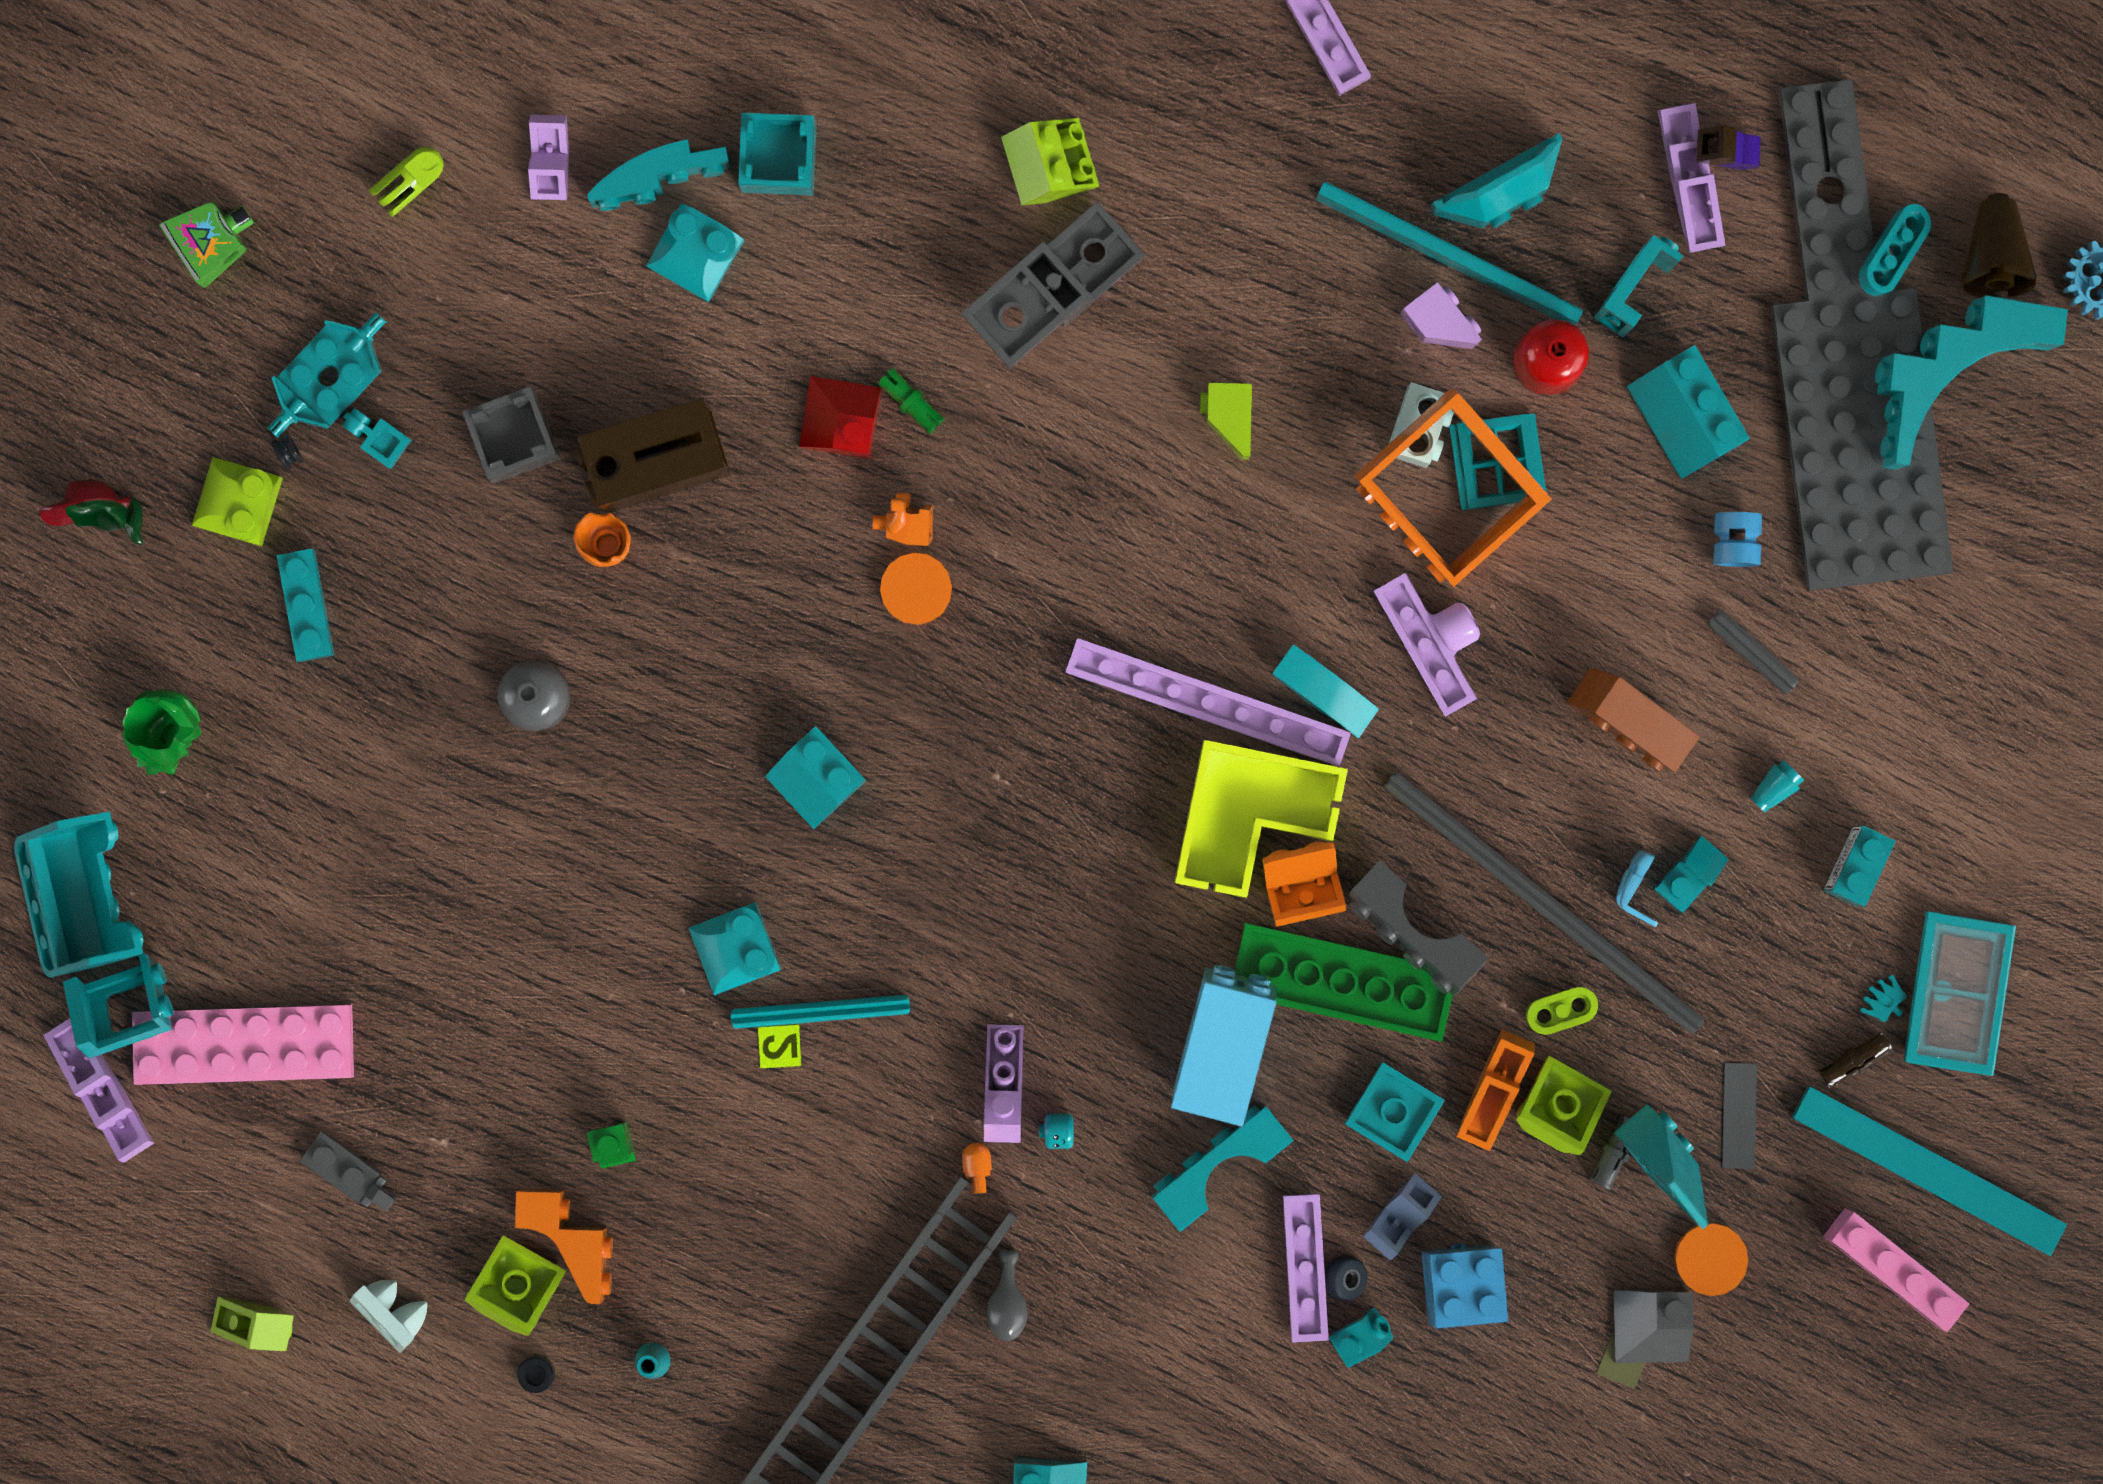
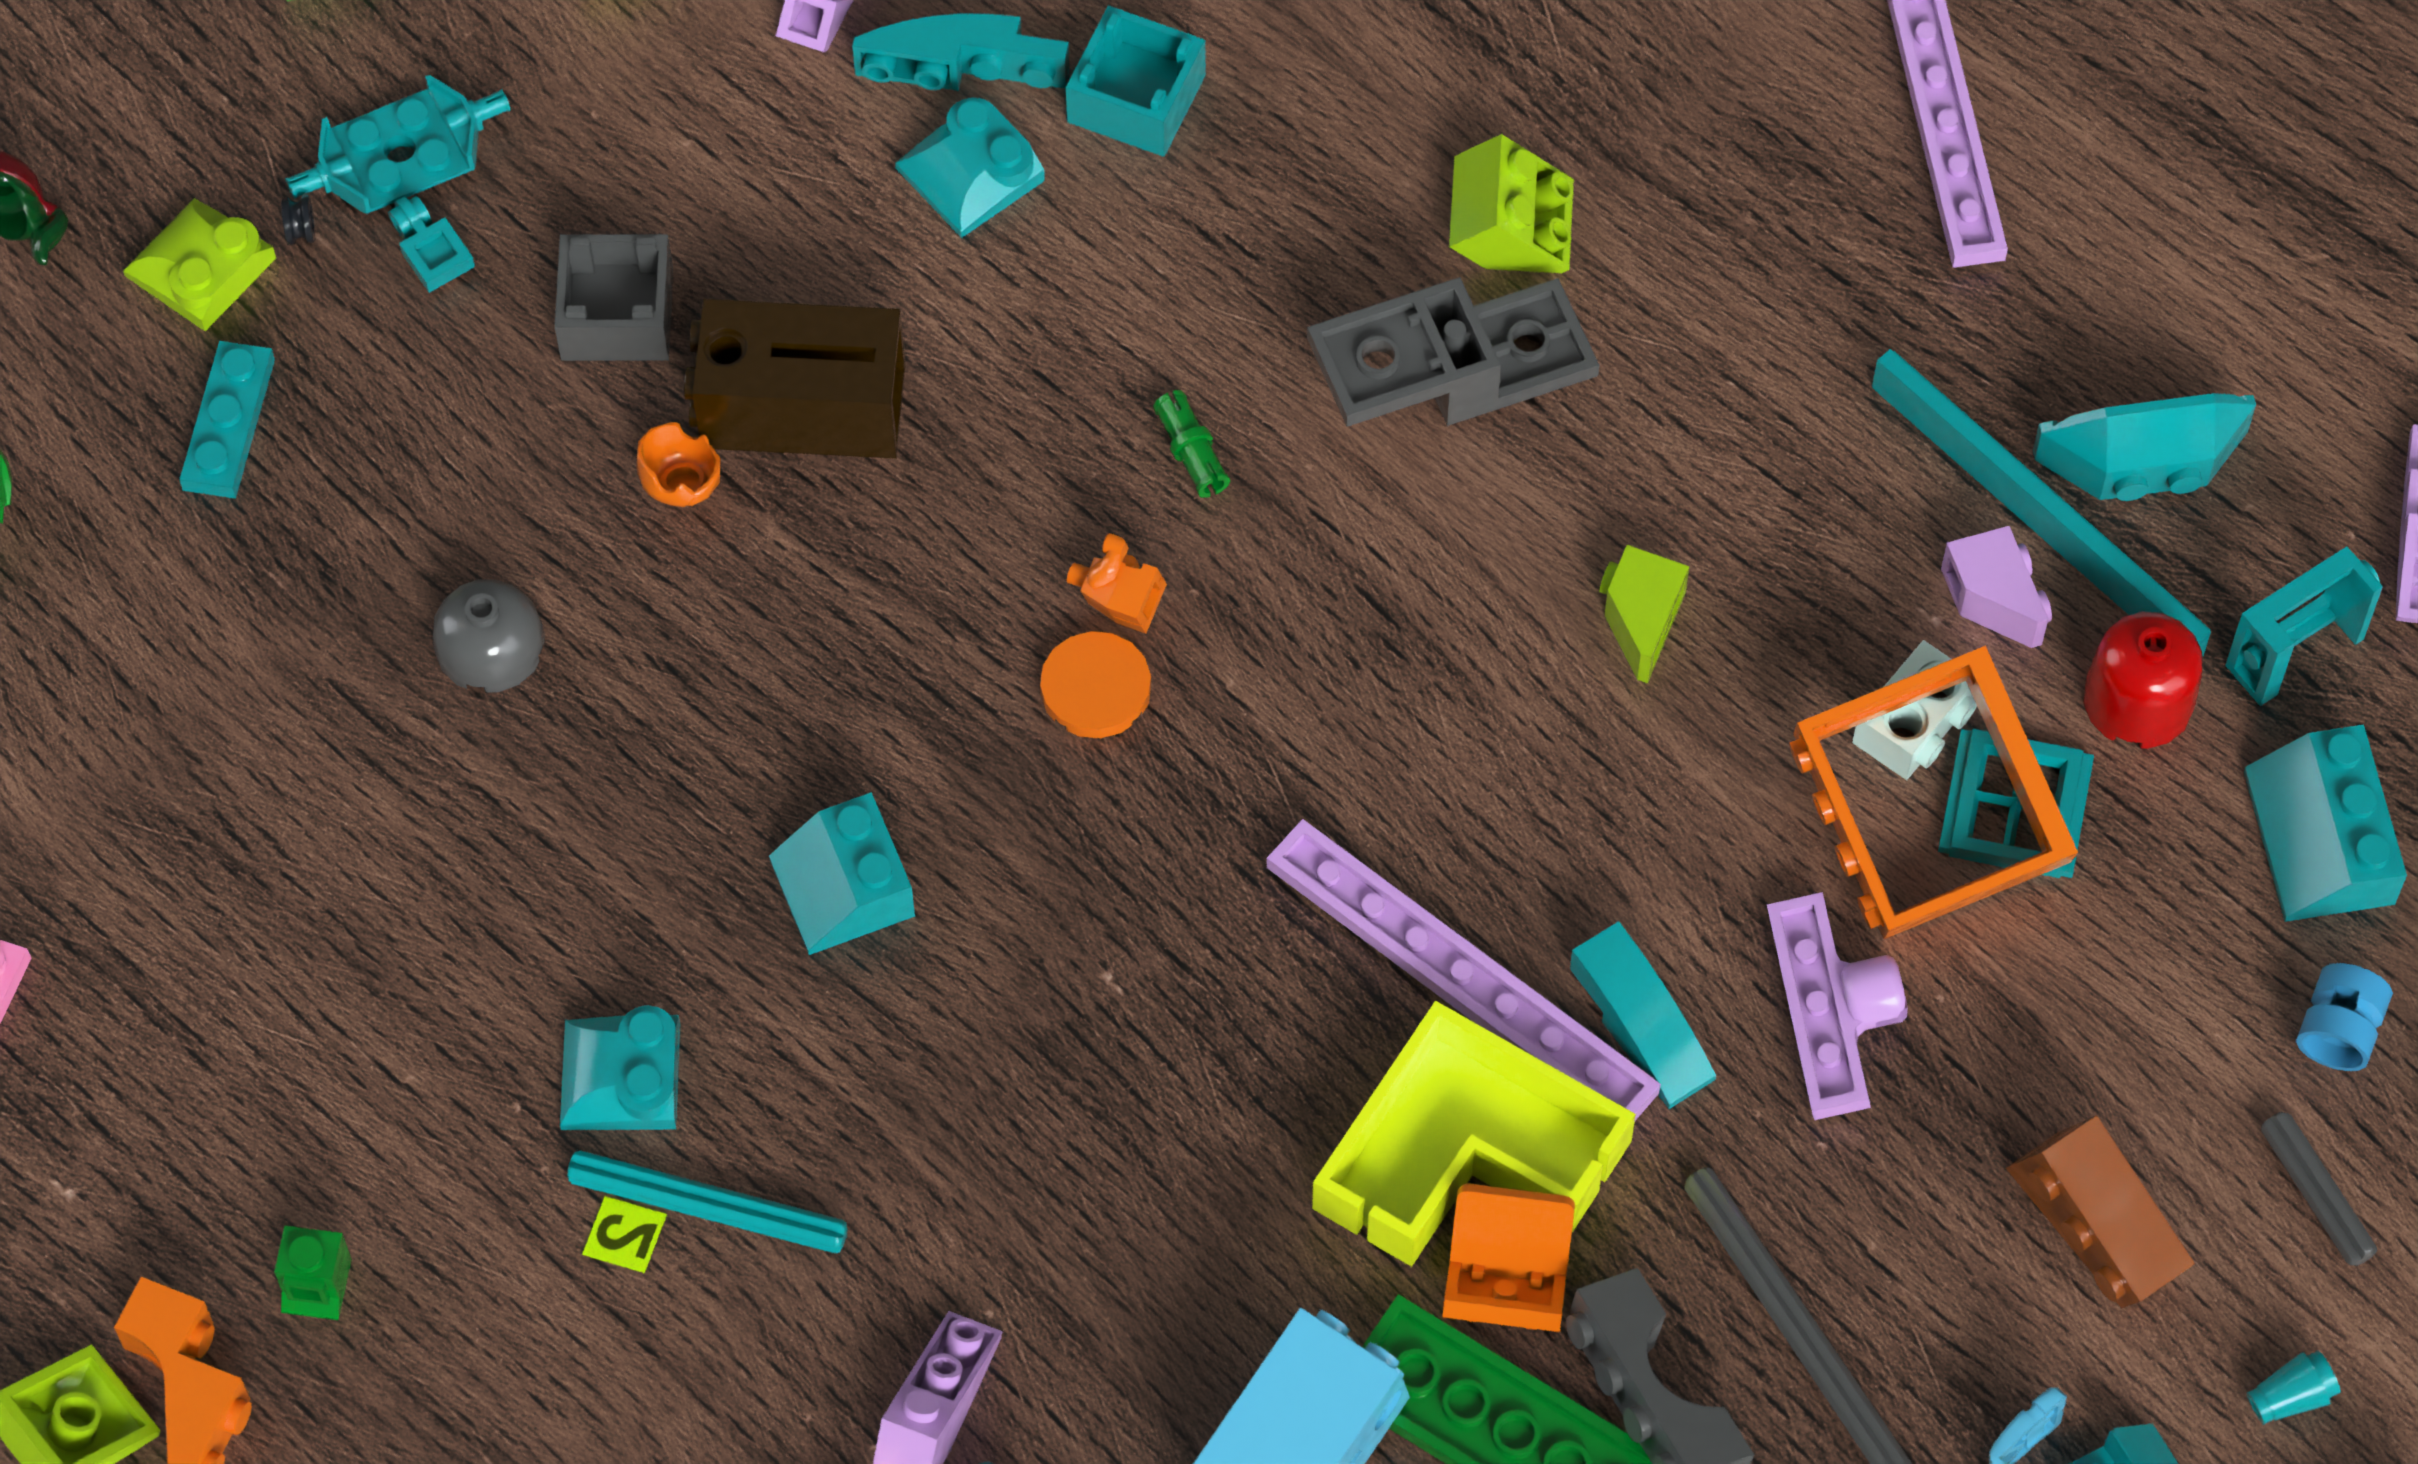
camera: 20 degrees right, 25 degrees down
(840, 417) = (1082, 435): red slope -> none

